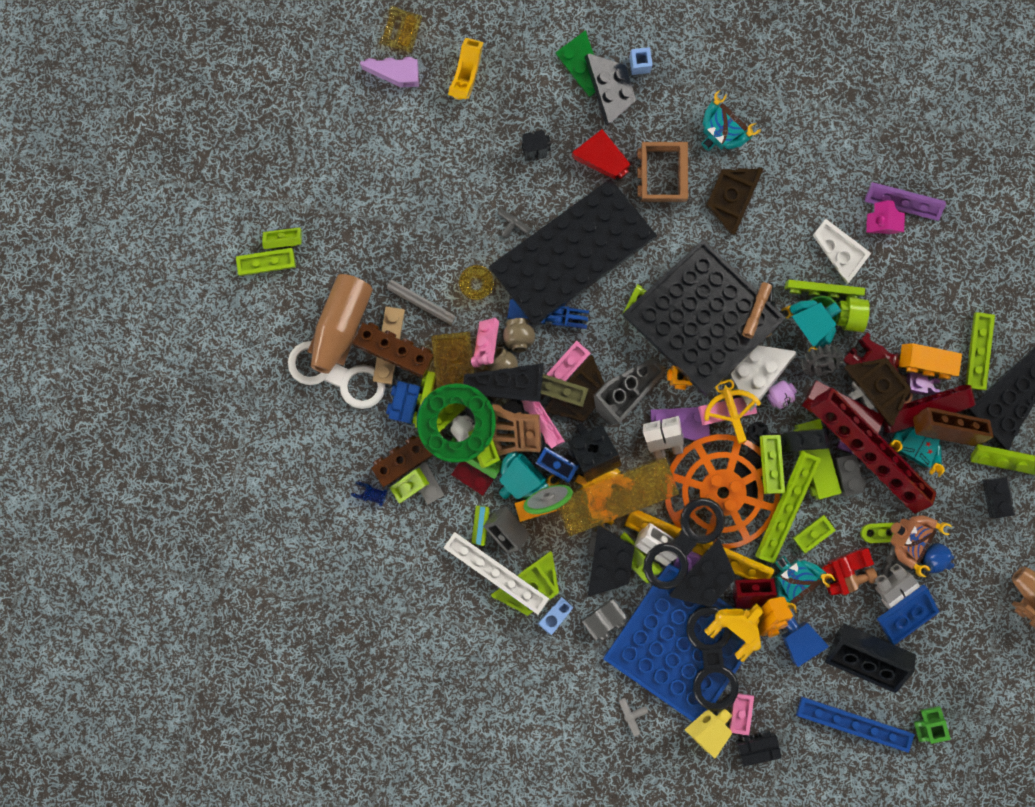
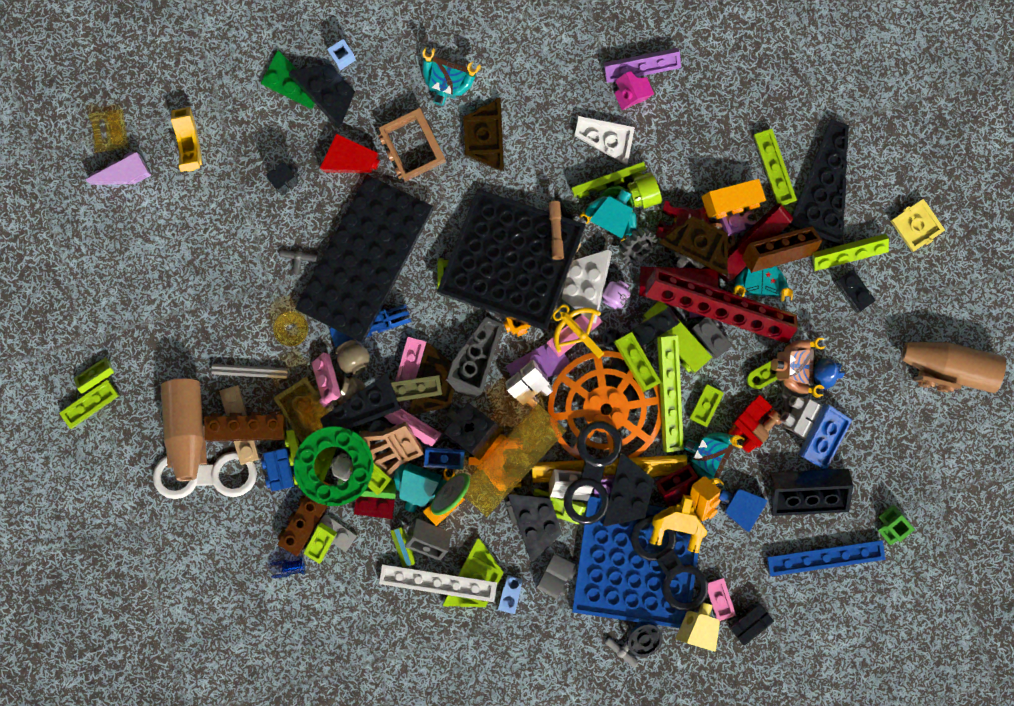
camera: 30 degrees left, 0 degrees up
(655, 715) = (643, 639): none -> black wheel

